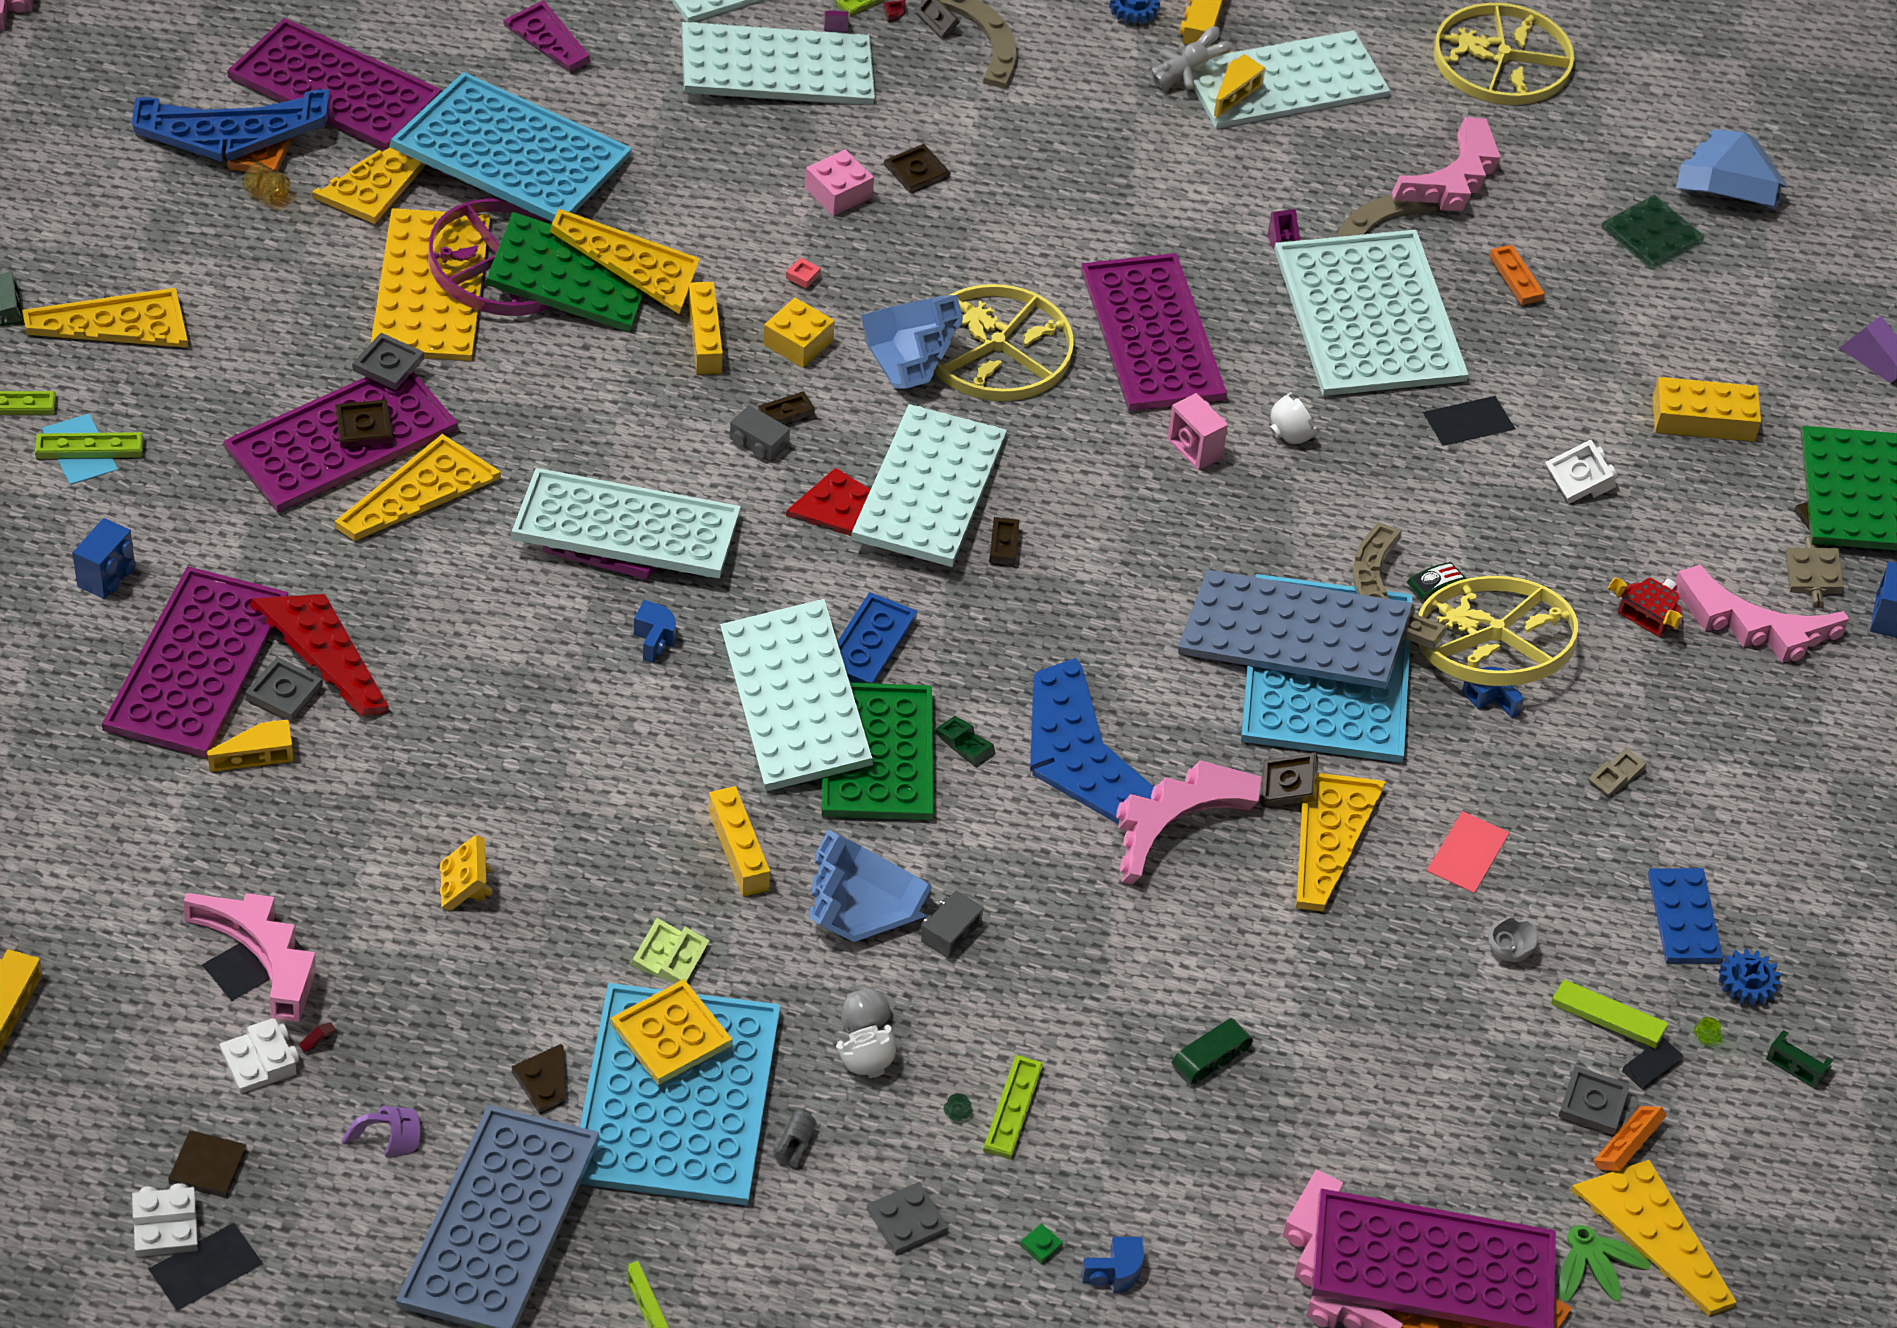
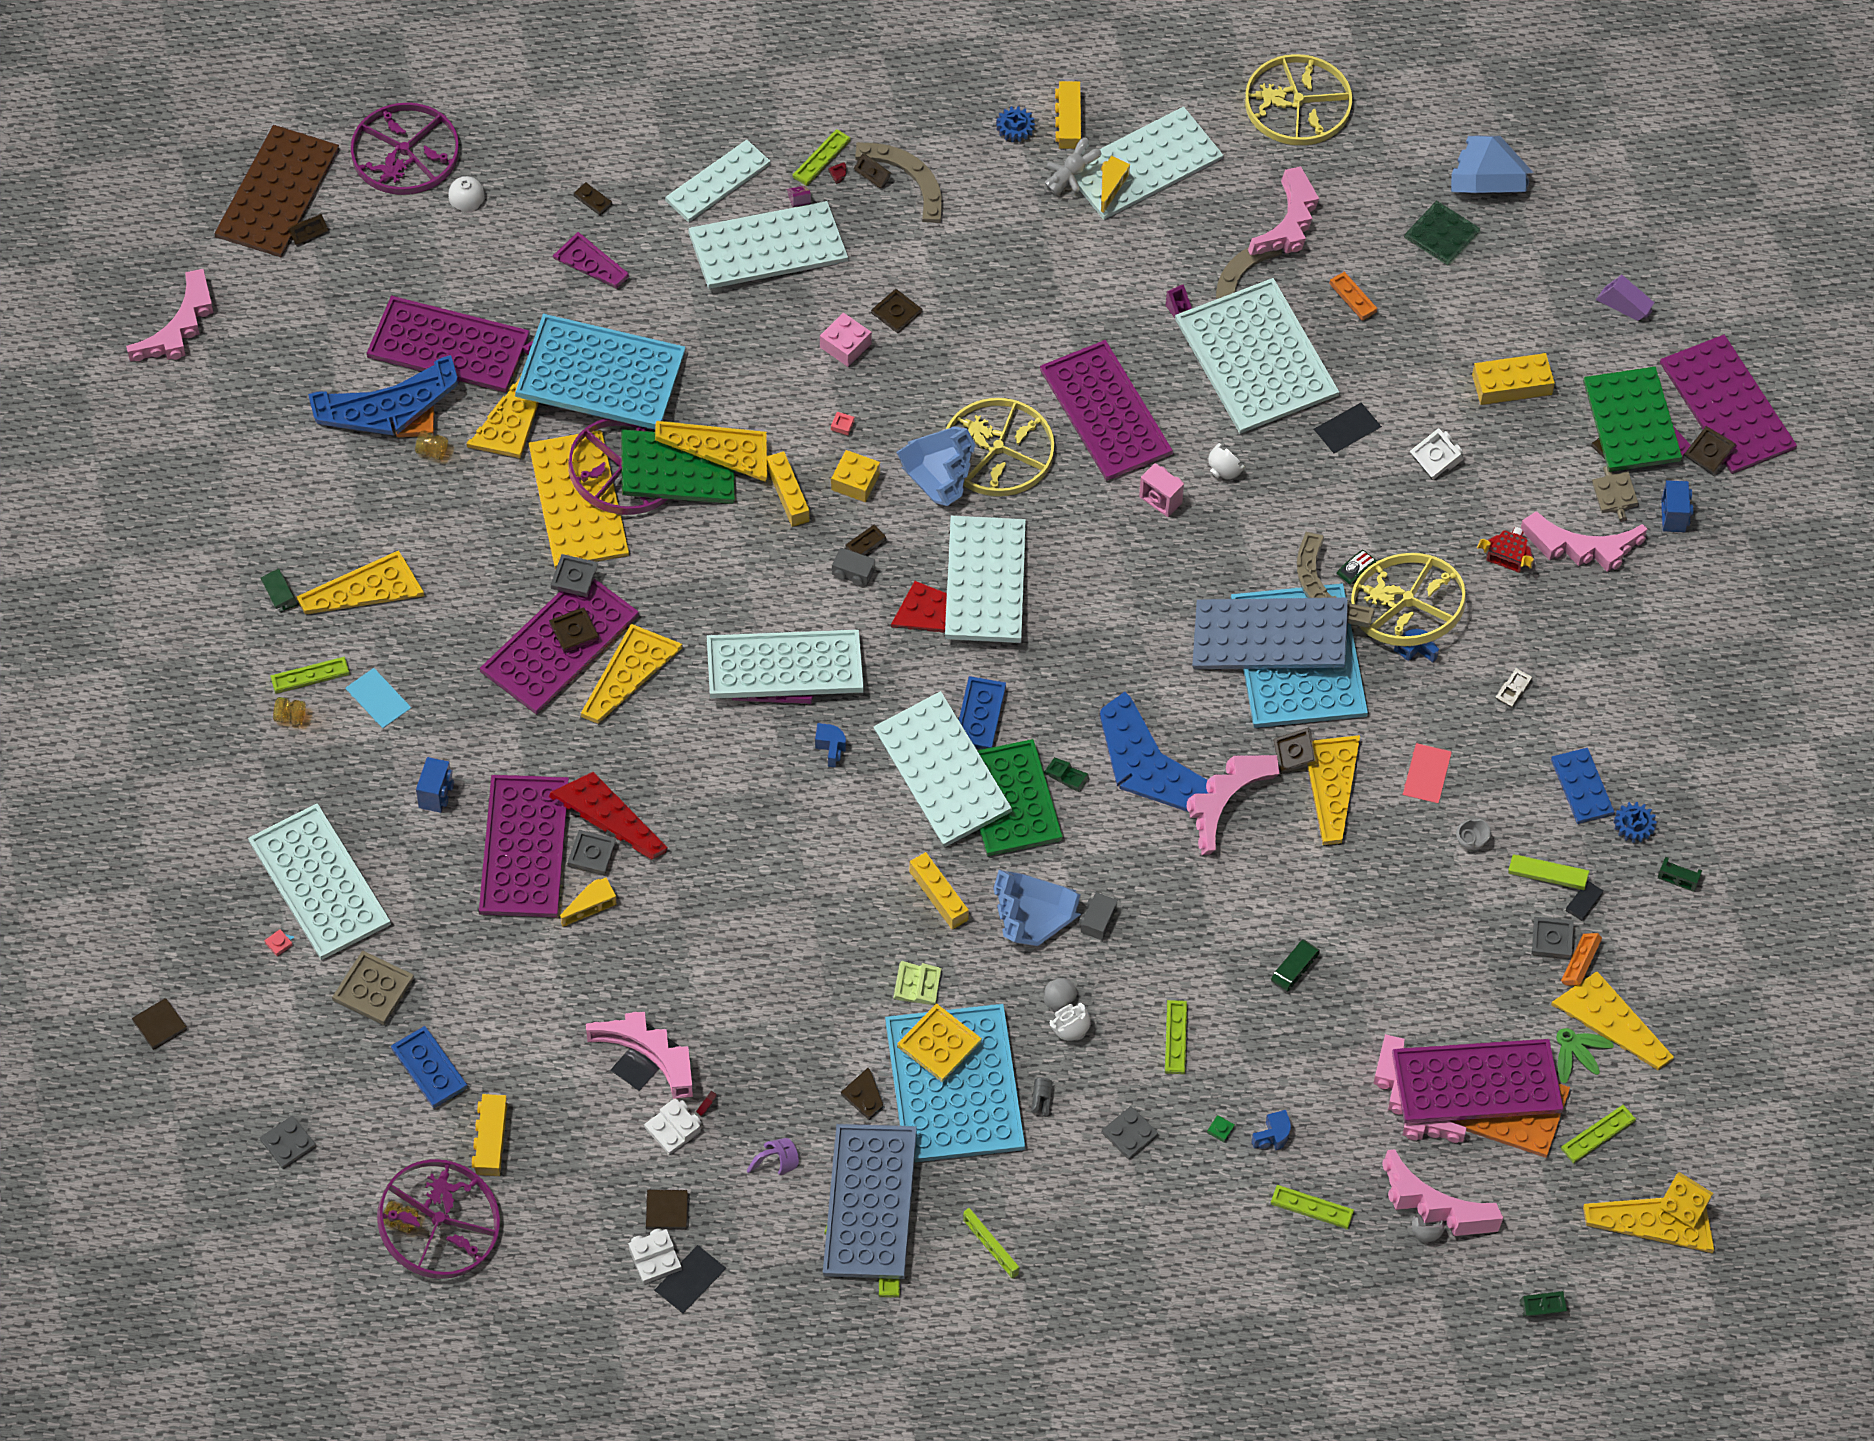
camera: 10 degrees left, 10 degrees up
(89, 445) = (385, 694): lime tile -> none
(464, 874) = (764, 962): yellow plate -> none
(961, 1101) = (1140, 1042): clear green plate -> none
(1004, 541) = (1049, 610): dark brown plate -> none
(1708, 1024) = (1618, 864): clear neon green plate -> none

